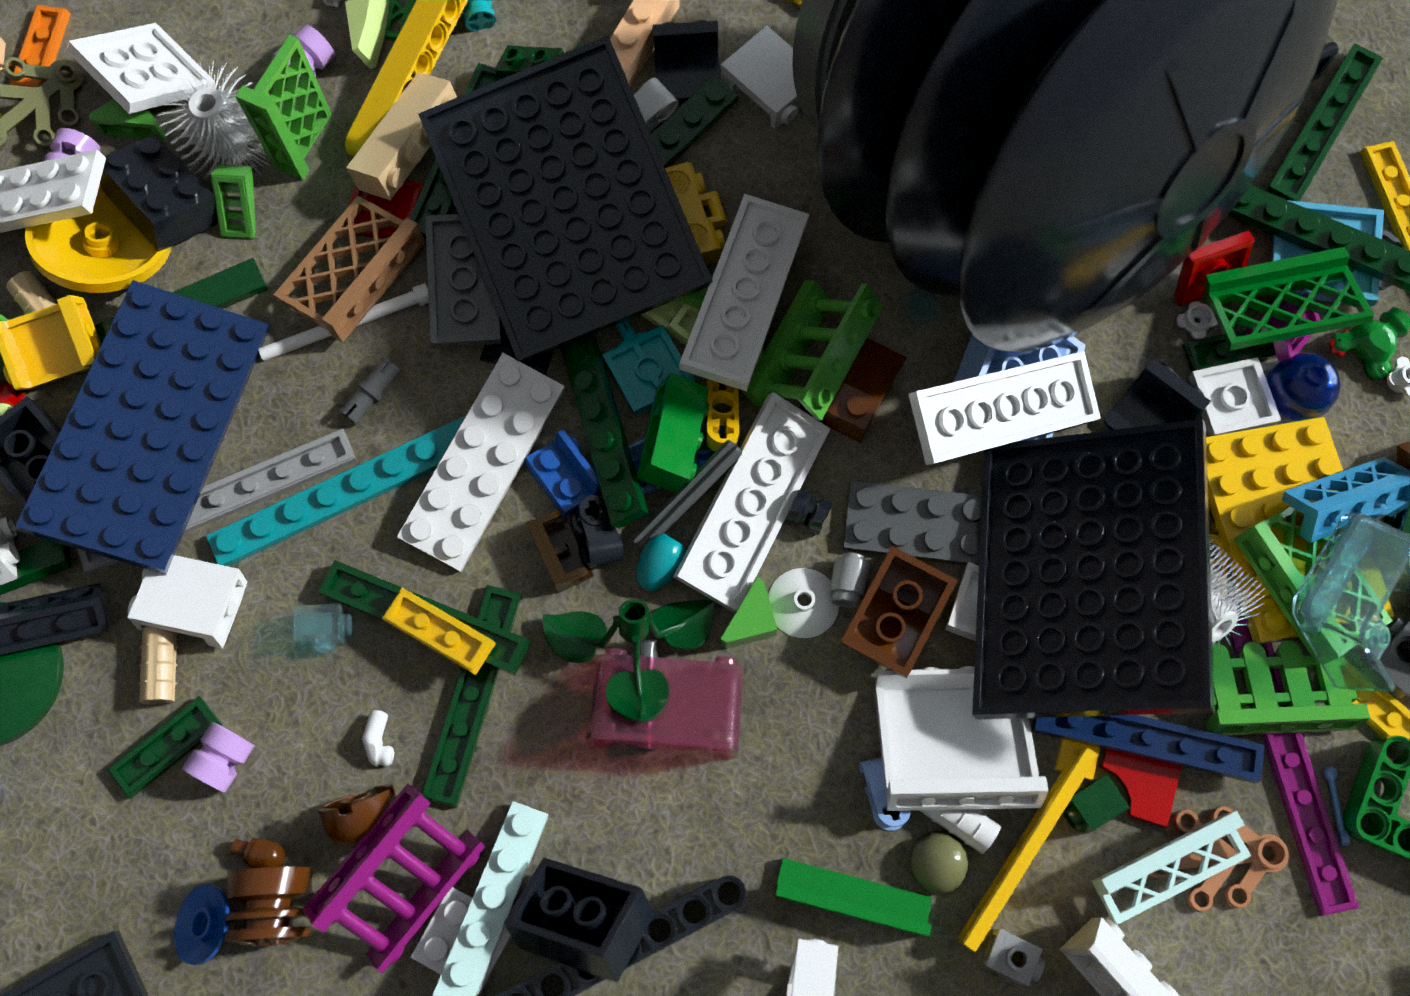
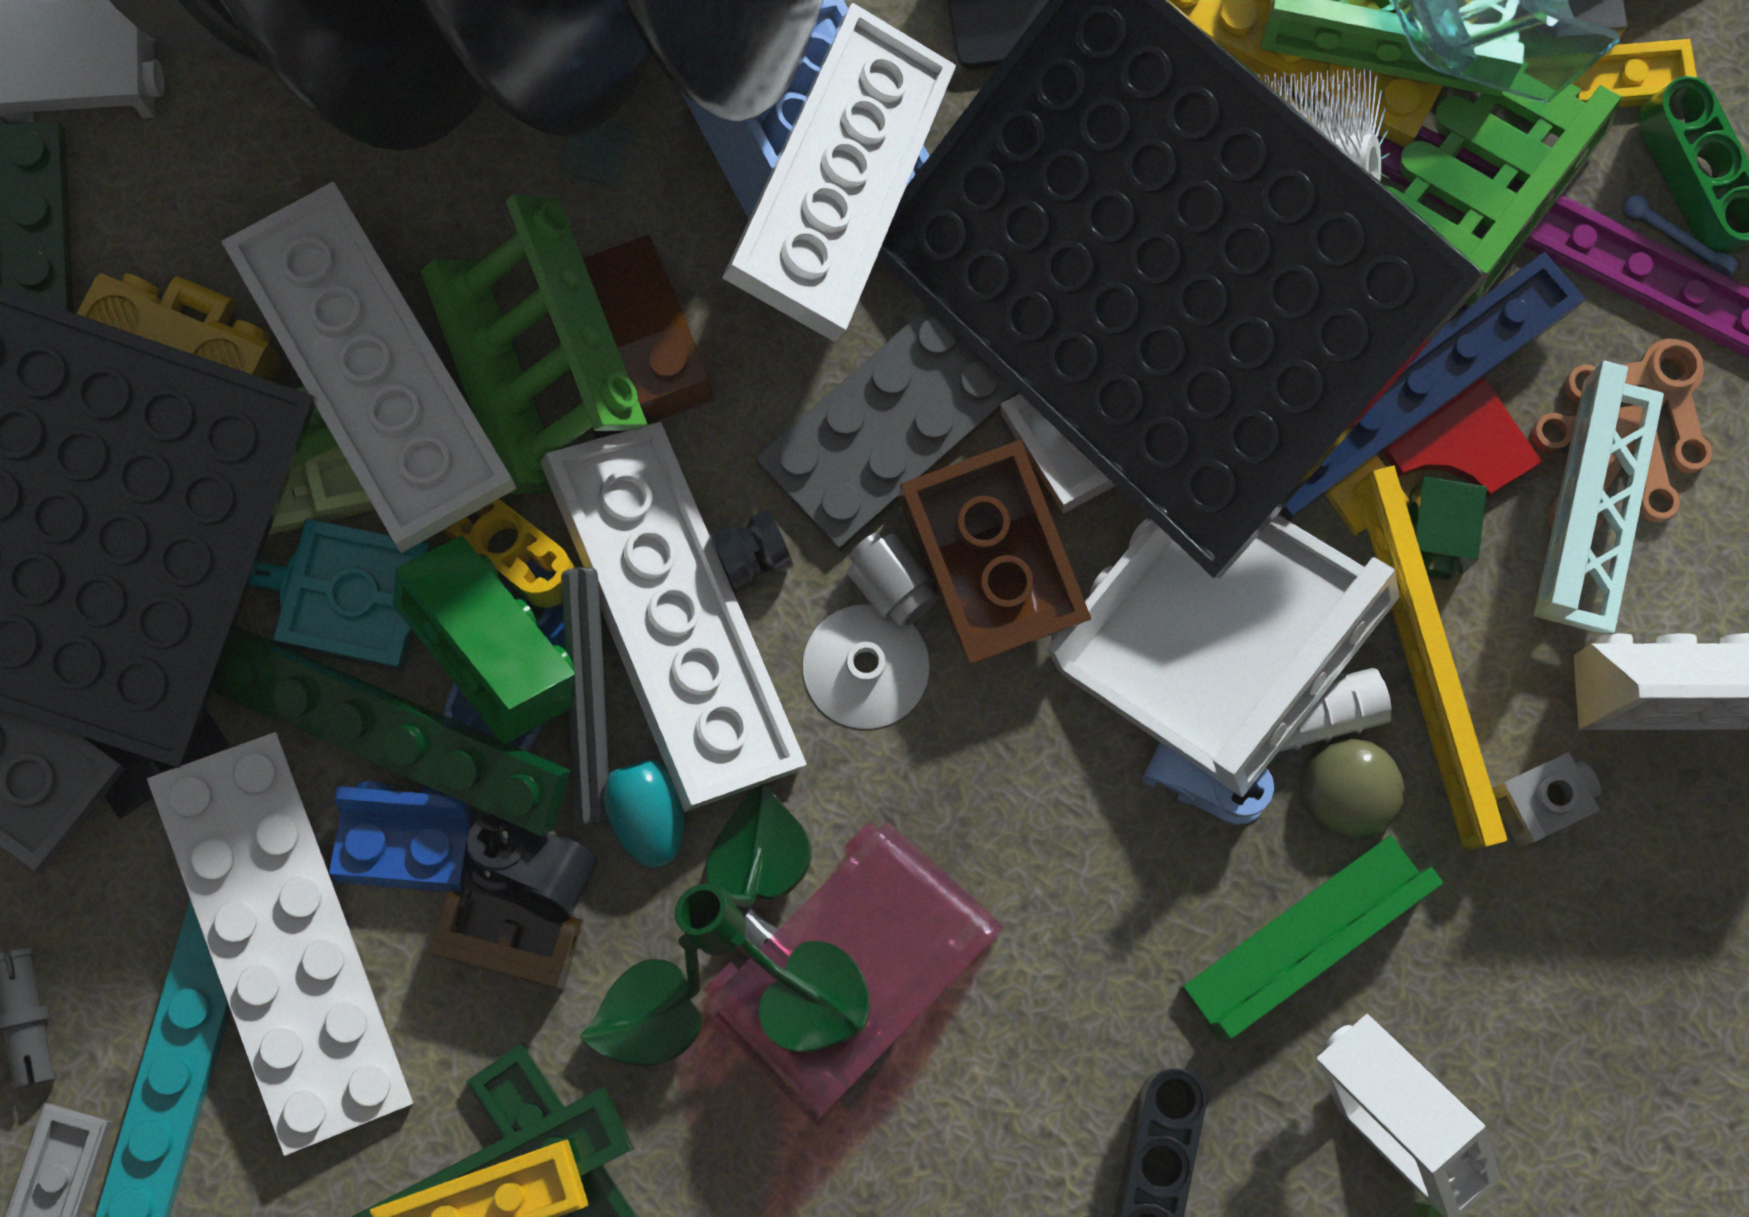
camera: 50 degrees left, 5 degrees up
(752, 620) = (834, 752): bright green slope -> none

